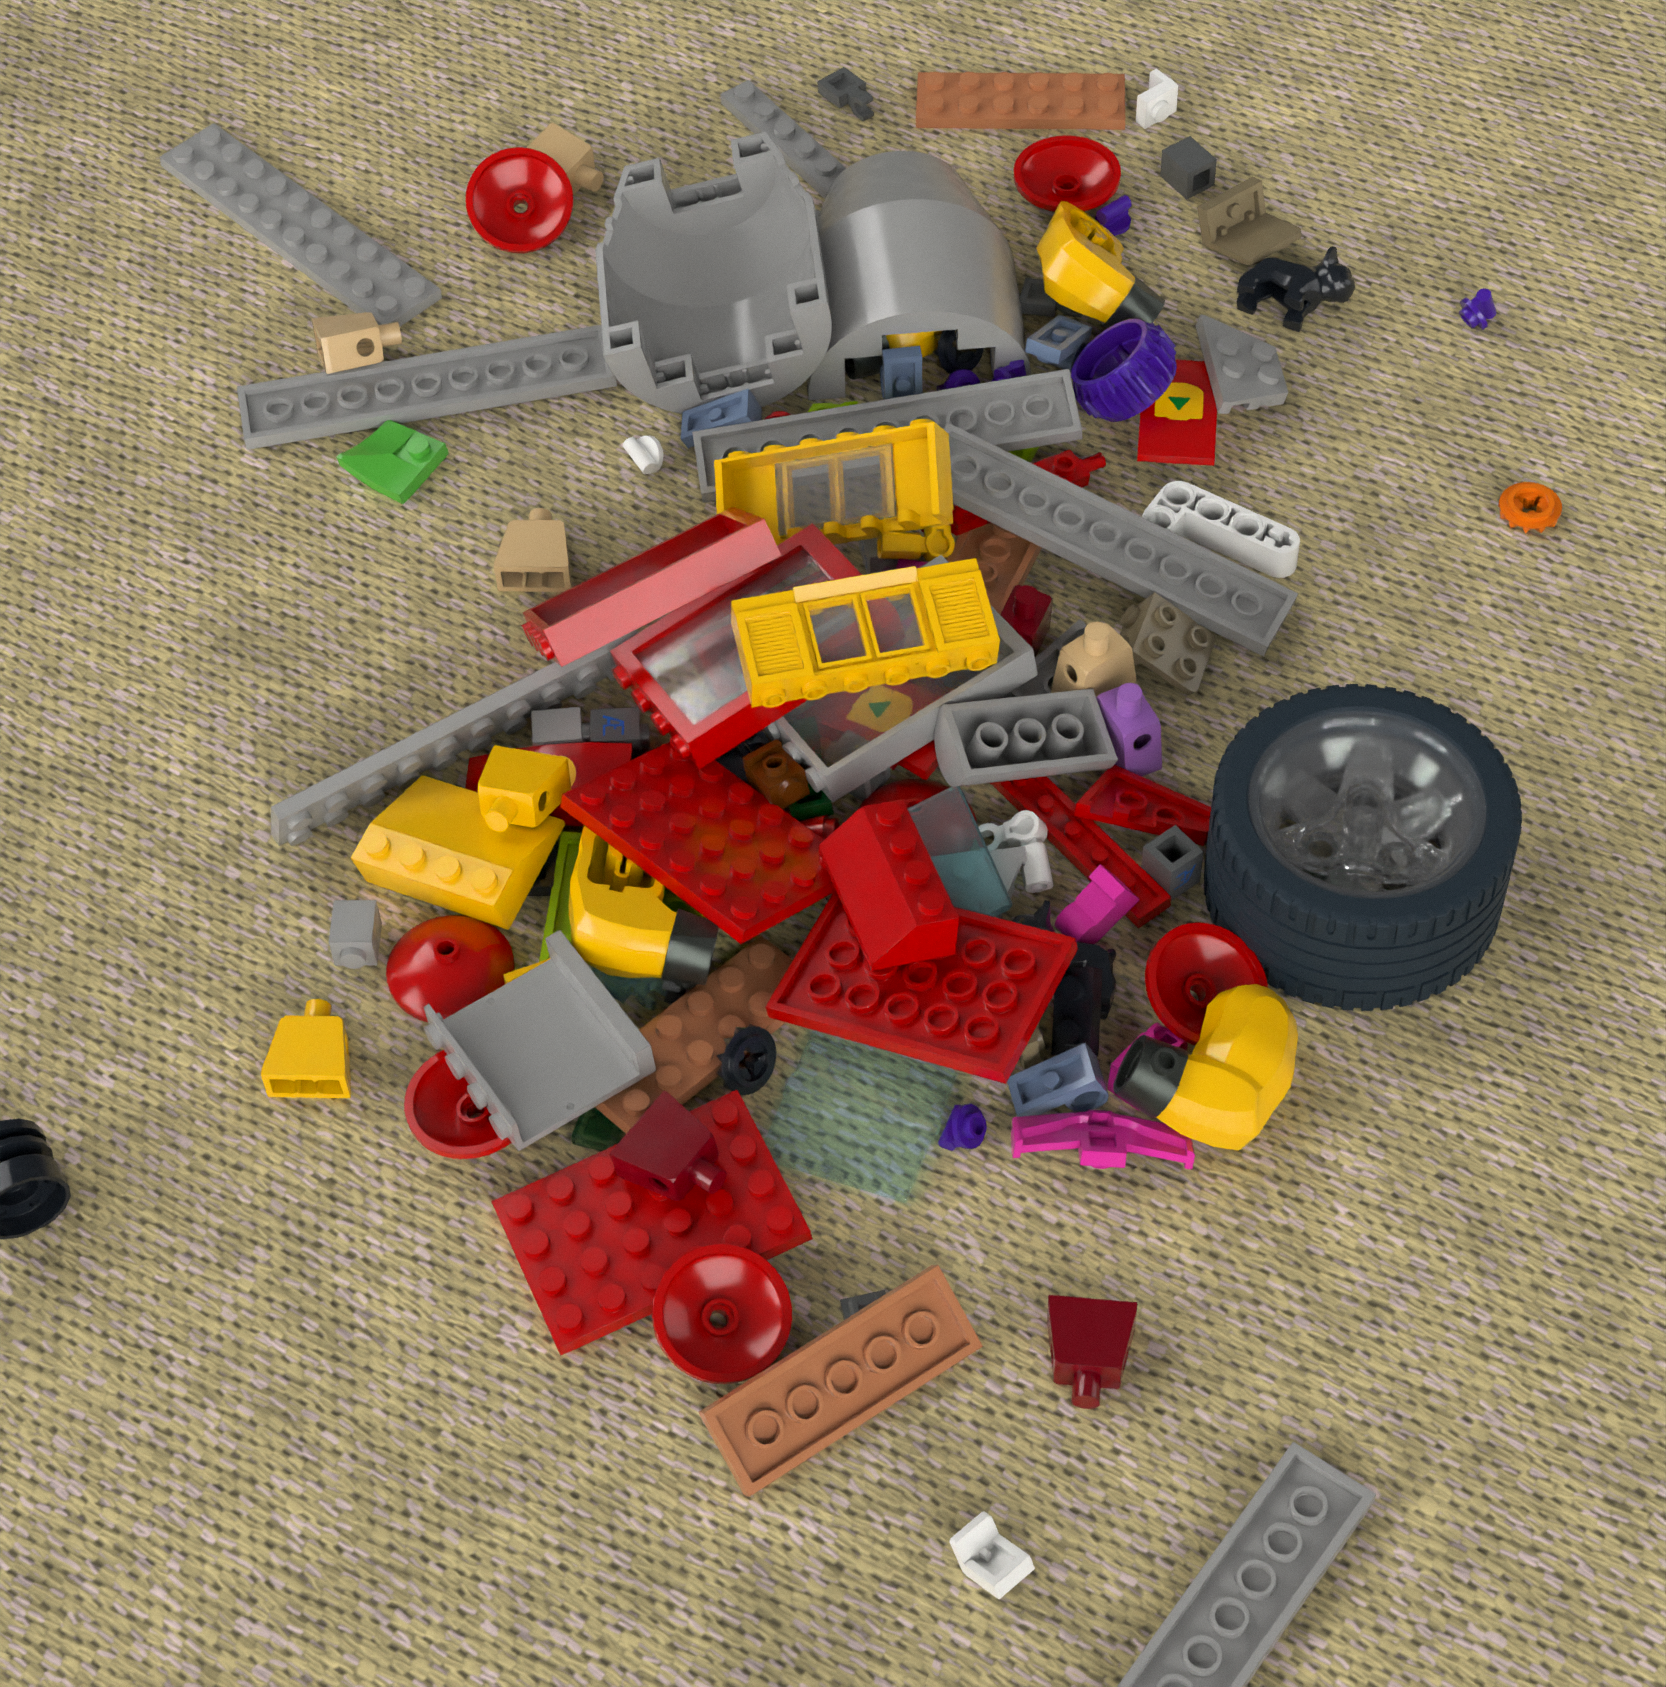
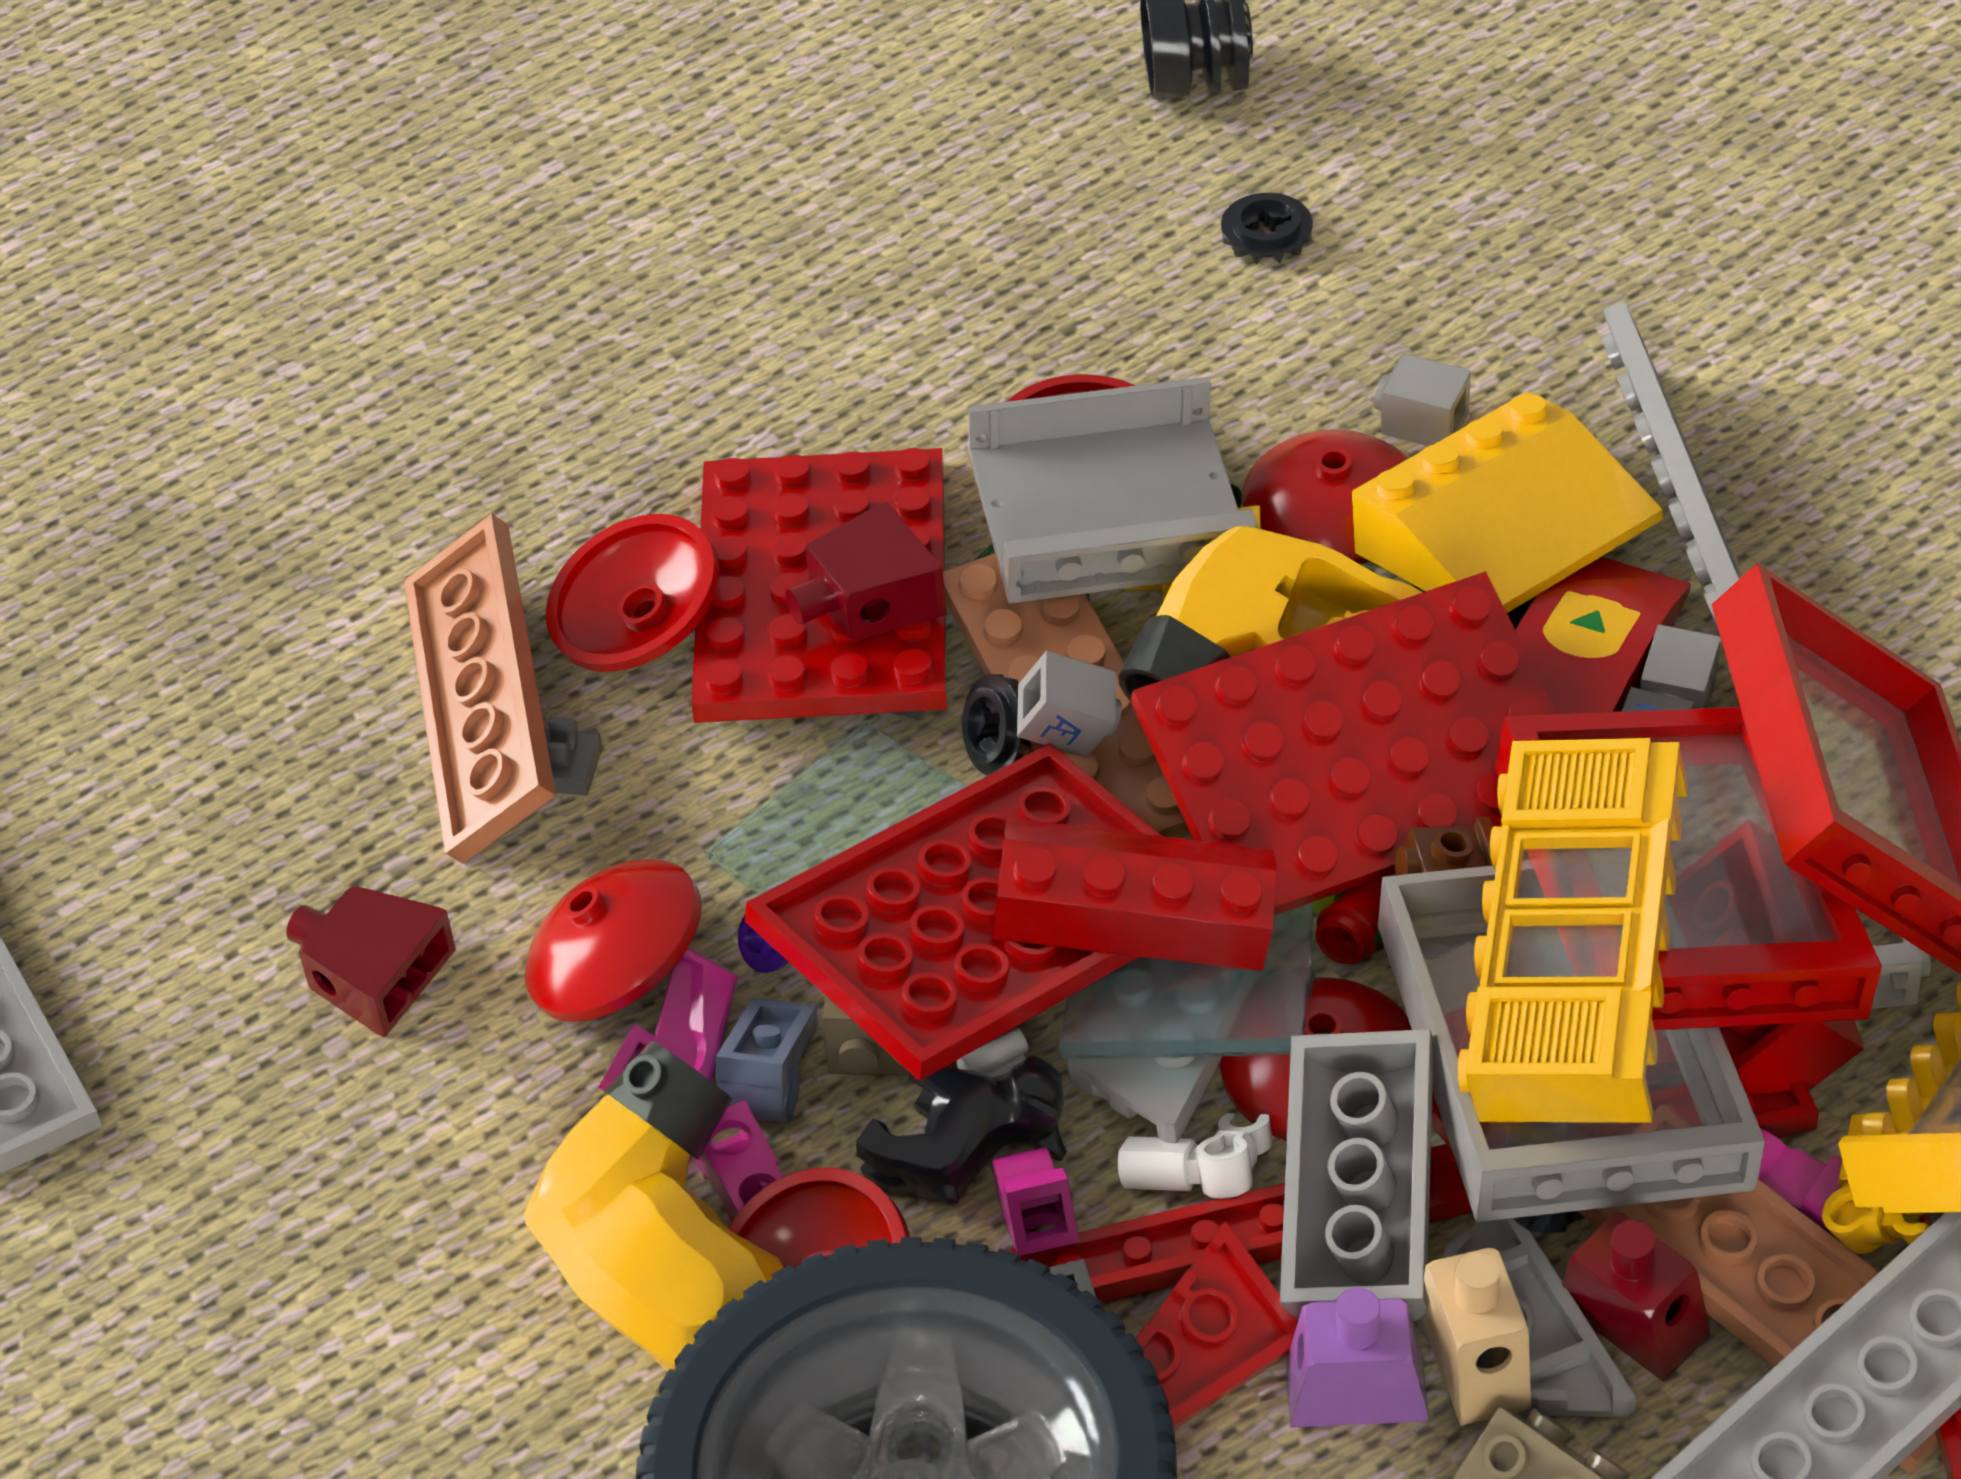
camera: 115 degrees right, 5 degrees down
(202, 1075) = (1279, 213): none -> black gear
(309, 1055) = (1251, 327): yellow torso -> none
(521, 787) = (1548, 559): yellow torso -> none
(740, 996) = (1067, 704): none -> light grey brick
(990, 1557) = (171, 769): white bracket -> none
(994, 1223) = (612, 939): none -> red dish
(1077, 1010) = (870, 1099): black plate -> none

